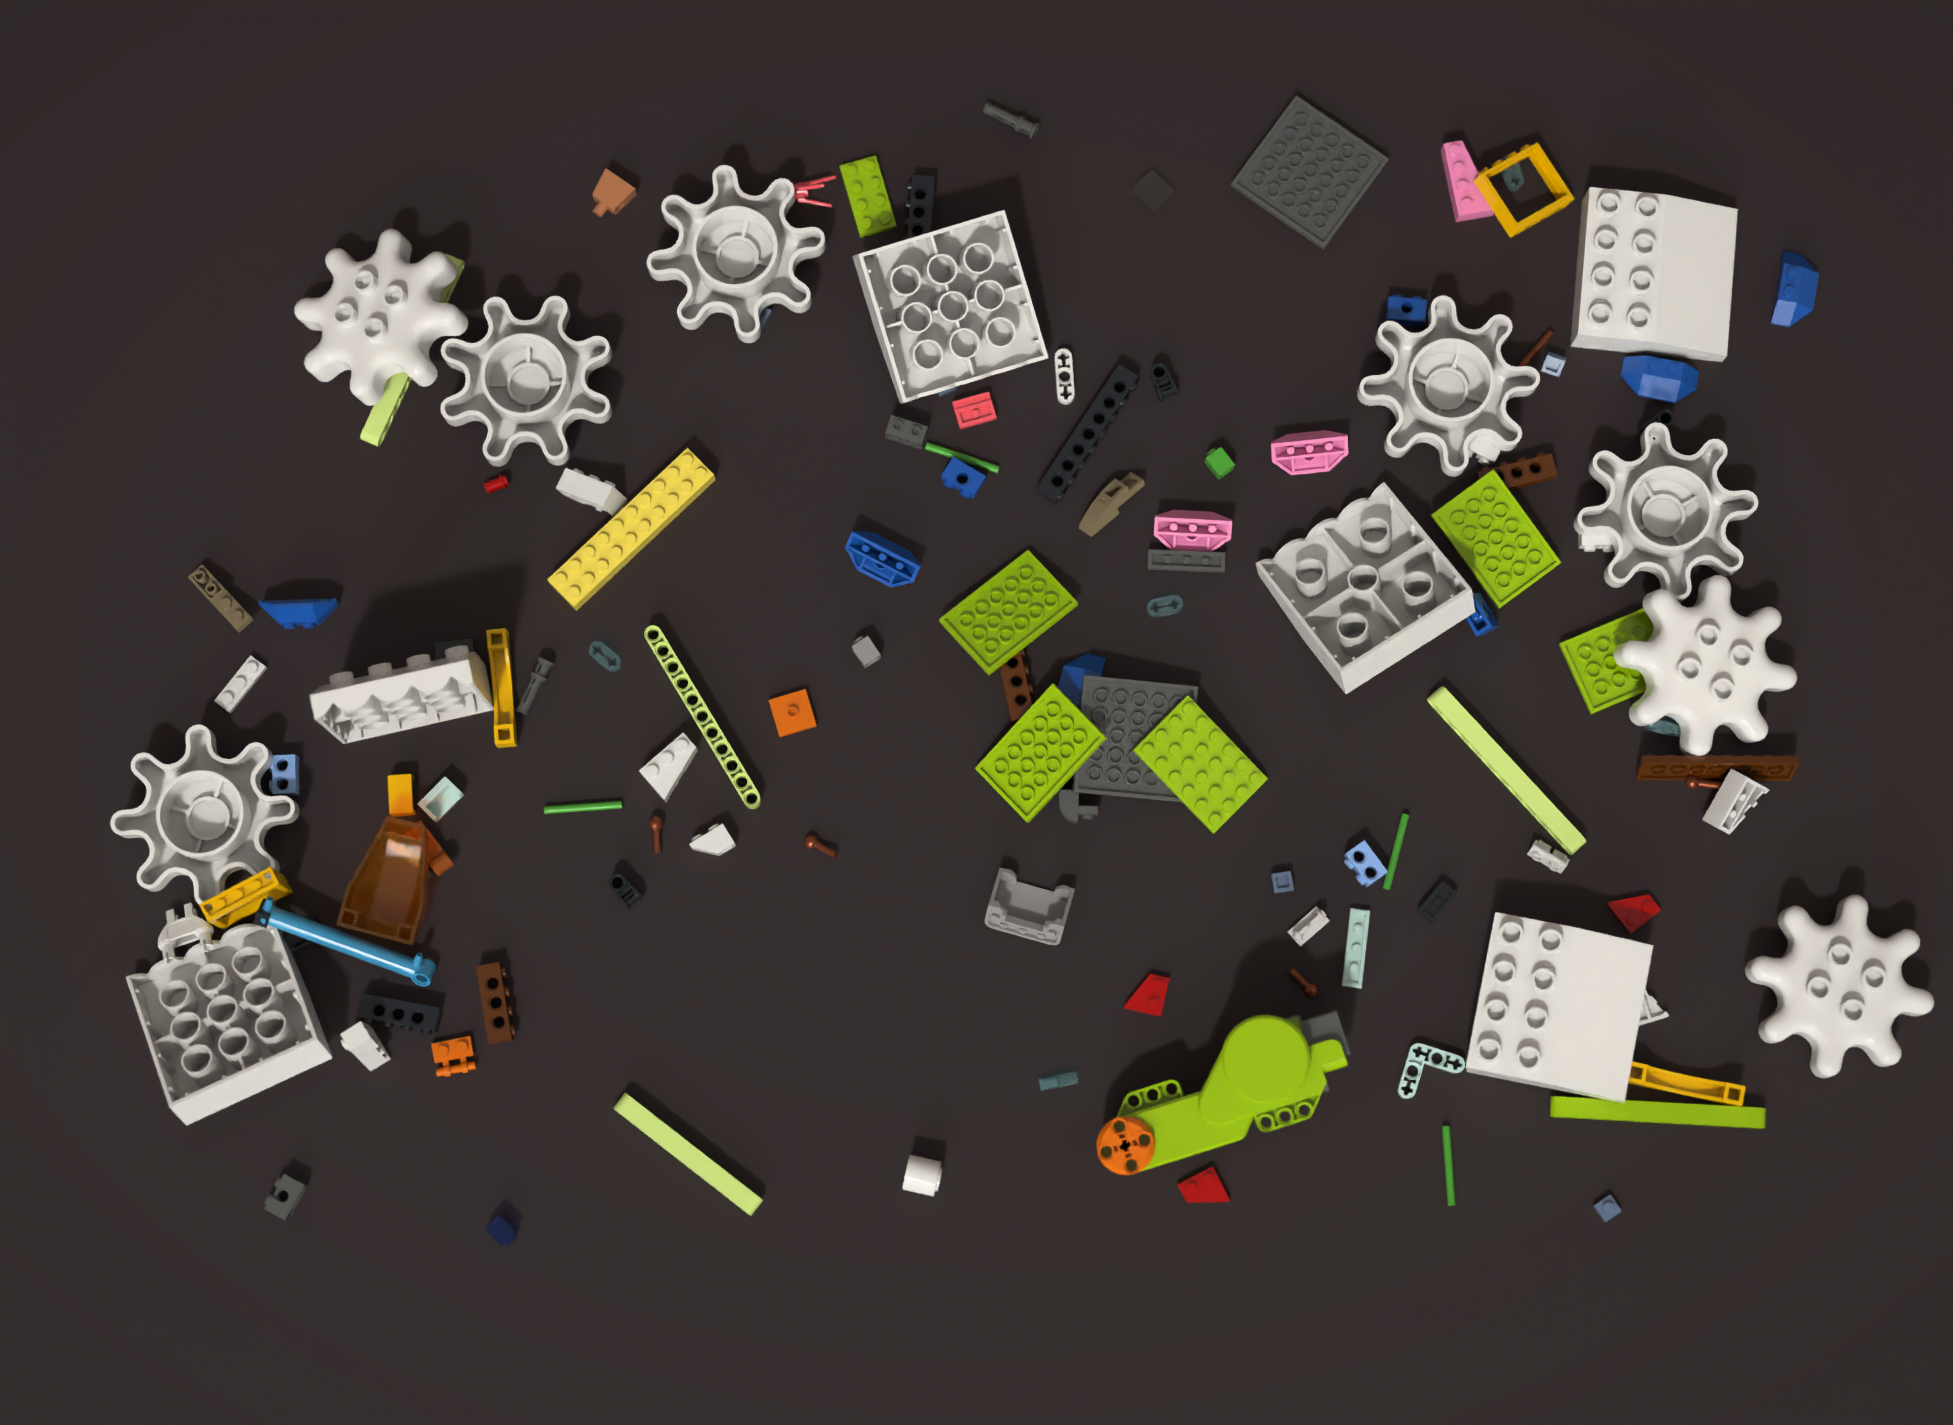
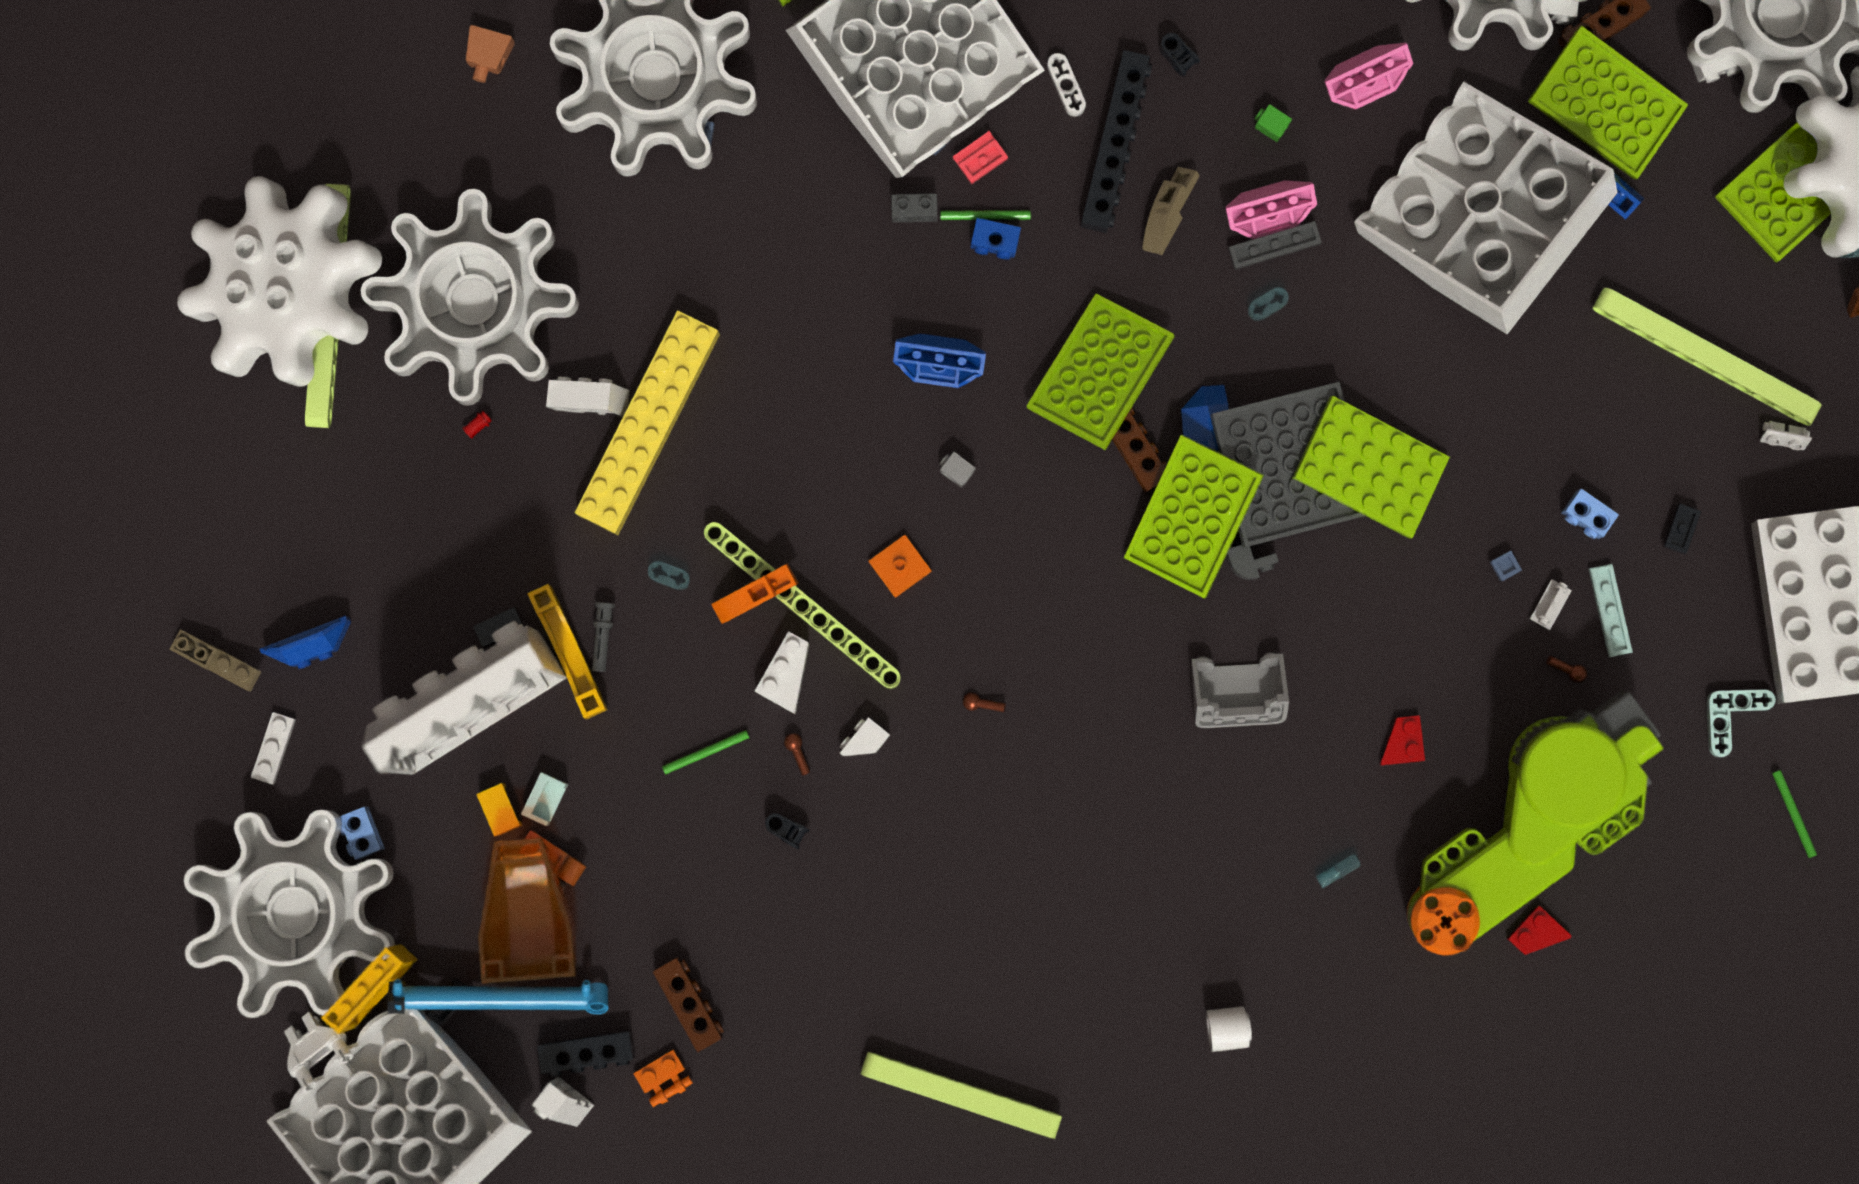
camera: 20 degrees left, 5 degrees up
(667, 693) = (754, 593): none -> orange slope
(1395, 851) = (1616, 487): bright green bar -> none

